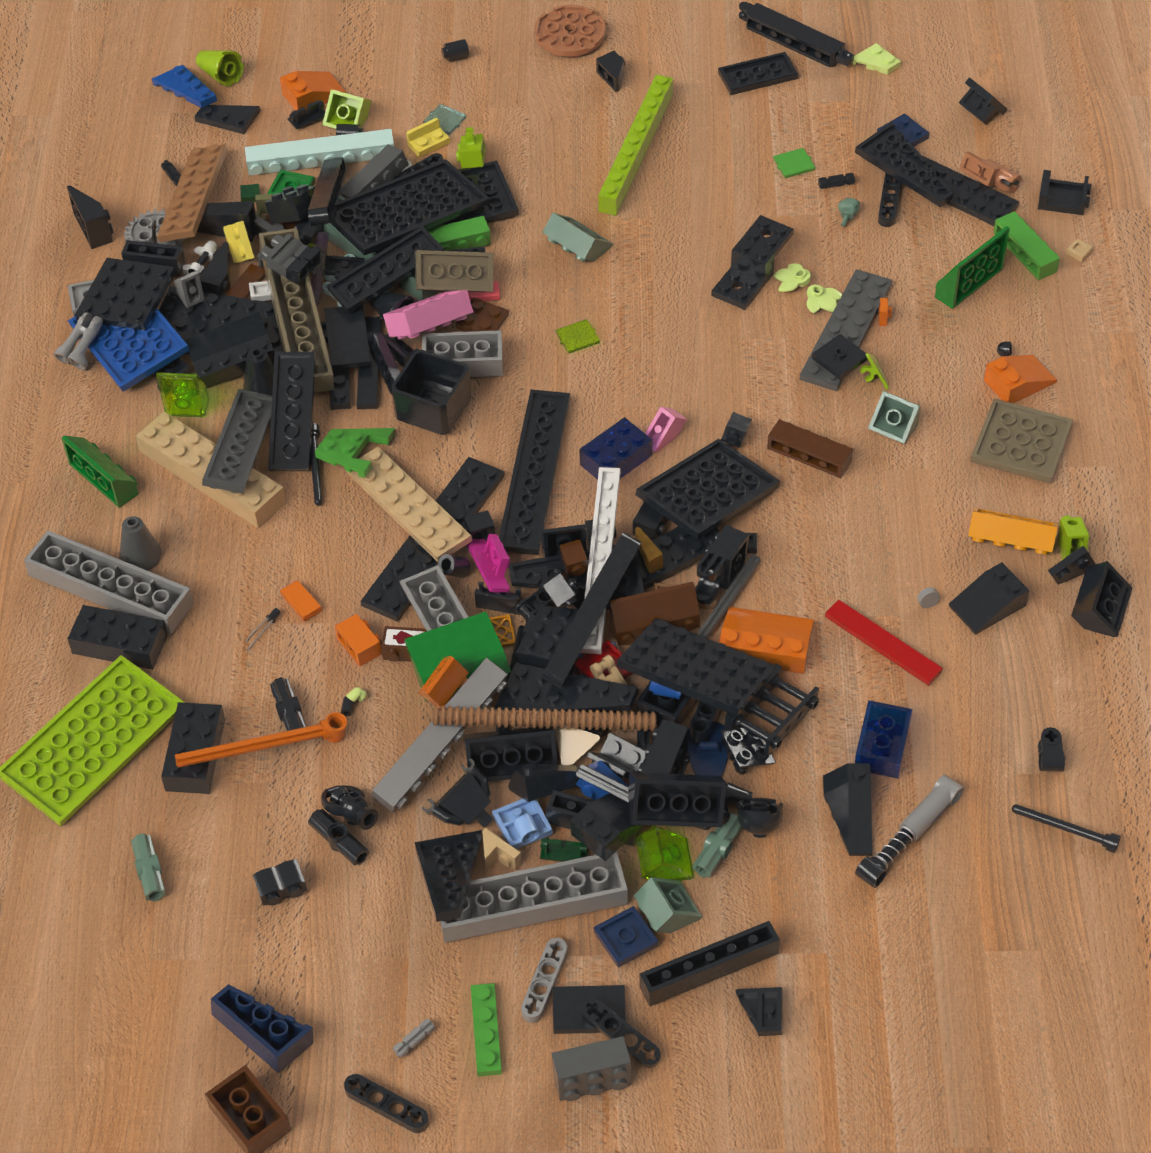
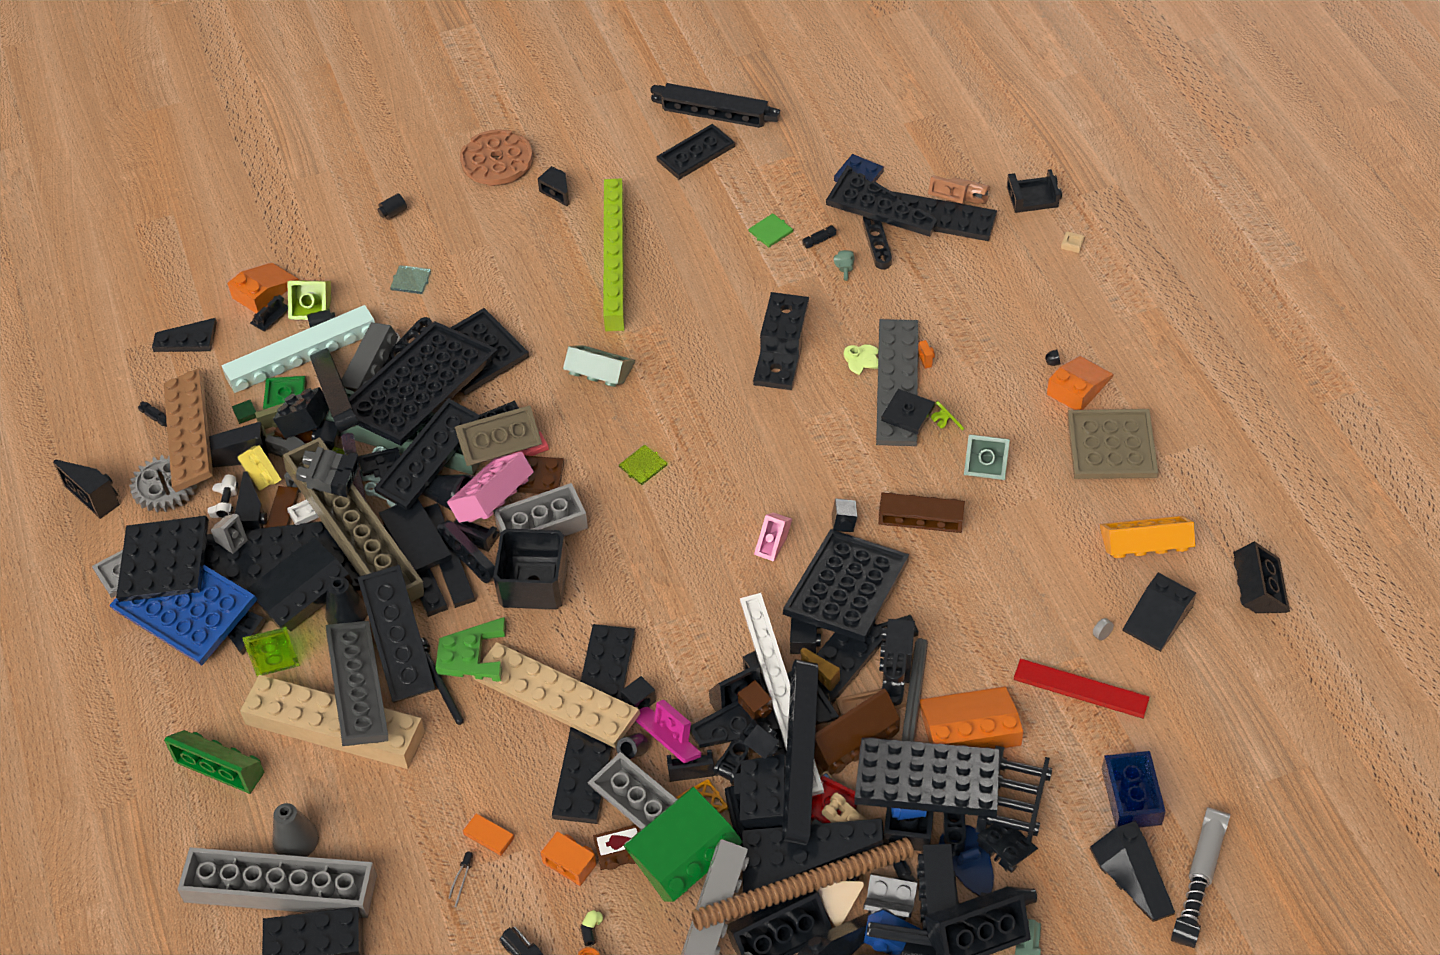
camera: 20 degrees left, 0 degrees up
(88, 329) = (137, 642): light grey piece -> none
(154, 254) = (174, 507): black brick -> none
(185, 85) = (129, 317): blue wing -> none
(221, 65) = (158, 286): lime cone -> none
(427, 138) = (402, 304): light yellow bracket -> none
(444, 682) = (686, 879): orange slope -> none
(462, 234) = (485, 393): bright green brick -> none
(471, 150) = (455, 304): lime brick -> none
(534, 471) = (666, 619): black plate -> none
(617, 447) = (737, 573): clear blue brick -> none
(760, 816) = (1055, 911): black cylinder -> none
(792, 277) = (823, 344): yellowish green plate -> none
(877, 59) = (802, 108): yellowish green wing -> none
(973, 271) = (990, 290): green slope -> none
(981, 102) = (918, 124): black bracket -> none
(1028, 246) = (1025, 251): bright green brick -> none
(1051, 751) = (1290, 749): black piece -> none
(1071, 531) = (1209, 529): lime torso -> none
(1072, 566) = (1220, 555): black wing -> none
(1108, 841) = (1385, 821): black piece -> none

